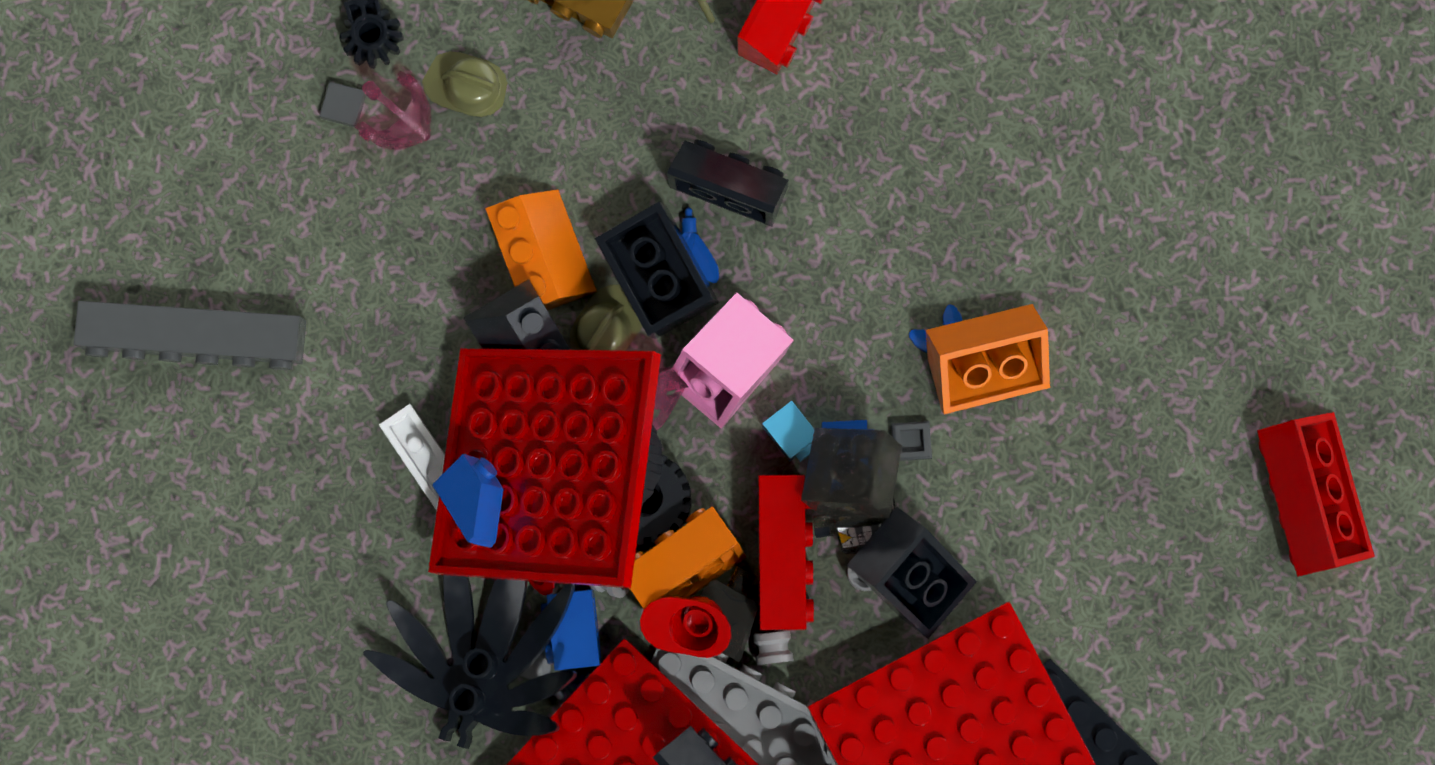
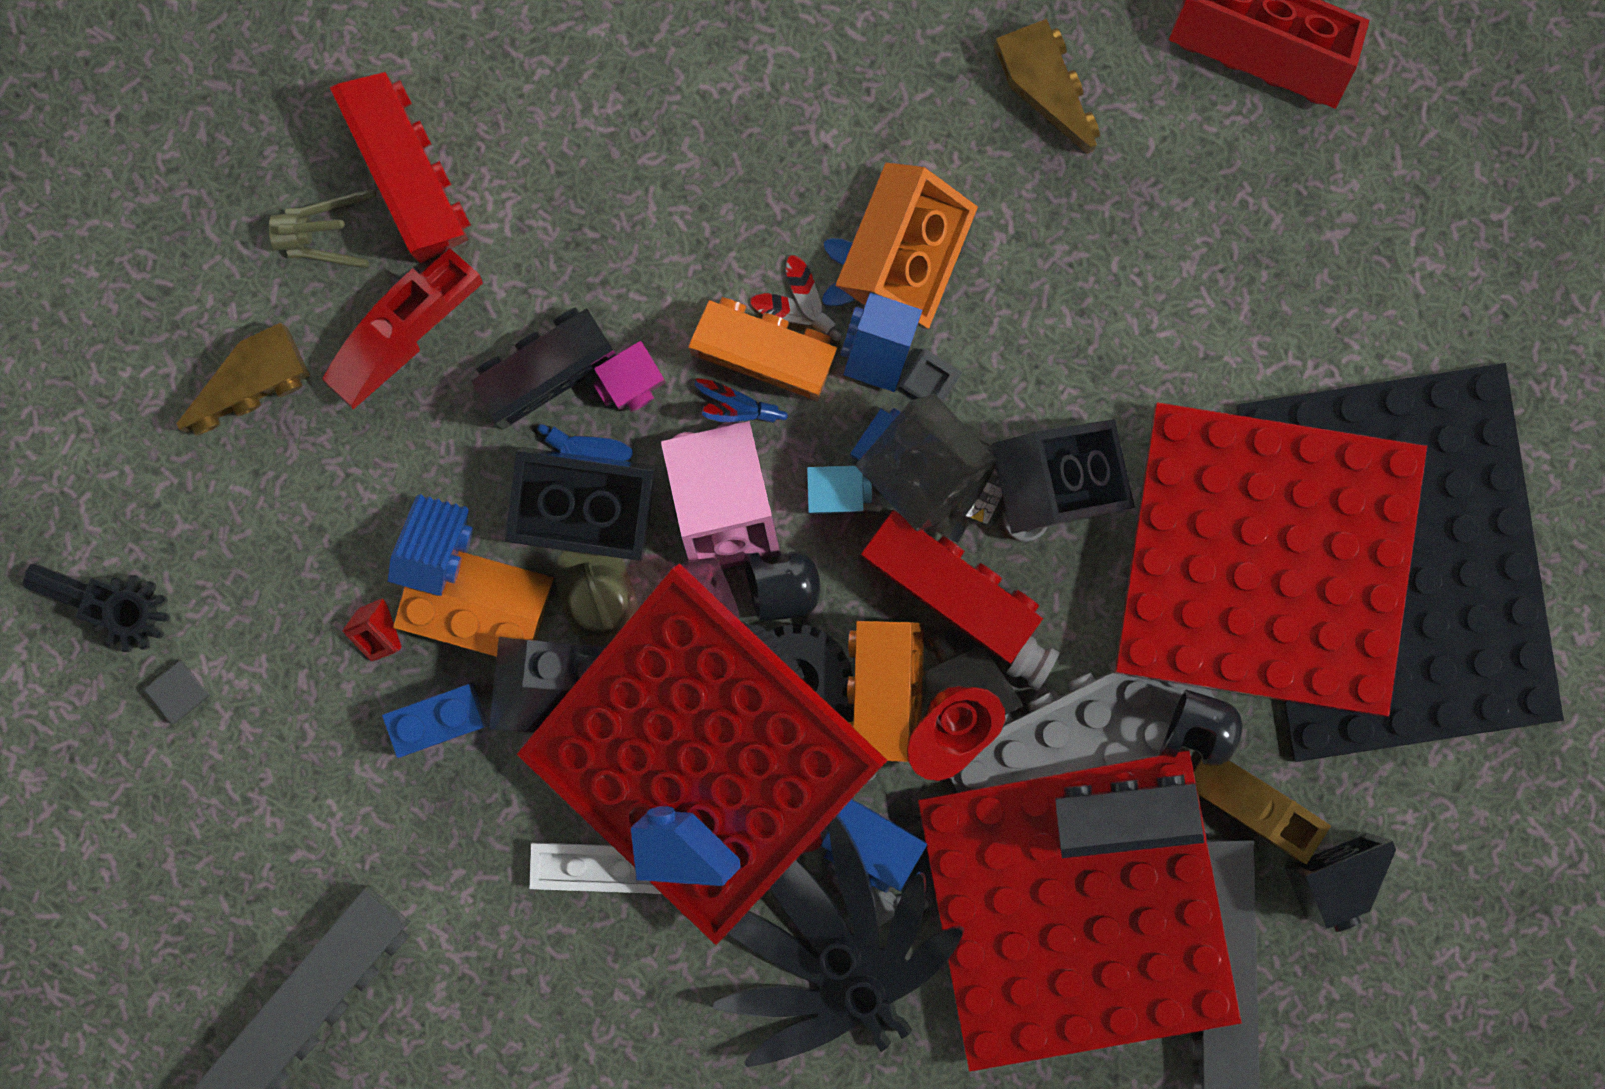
camera: 65 degrees left, 5 degrees up
(412, 122) = (252, 637): clear pink helmet -> none
(445, 281) = (435, 720): none -> blue brick
(465, 84) = (247, 555): olive piece -> none
(473, 198) = (373, 631): none -> red slope
(556, 193) = (429, 545): none -> blue brick
(685, 65) = (395, 324): none -> red slope
(700, 445) = (782, 588): none -> black helmet
(763, 242) = (629, 378): none -> dark pink brick
(798, 324) = (735, 404): none -> blue piece
(848, 314) = (763, 348): none -> orange slope
(896, 324) = (806, 307): none -> piece
(910, 386) = (879, 341): none -> blue brick
(1166, 364) = (1040, 77): none -> pearl gold slope

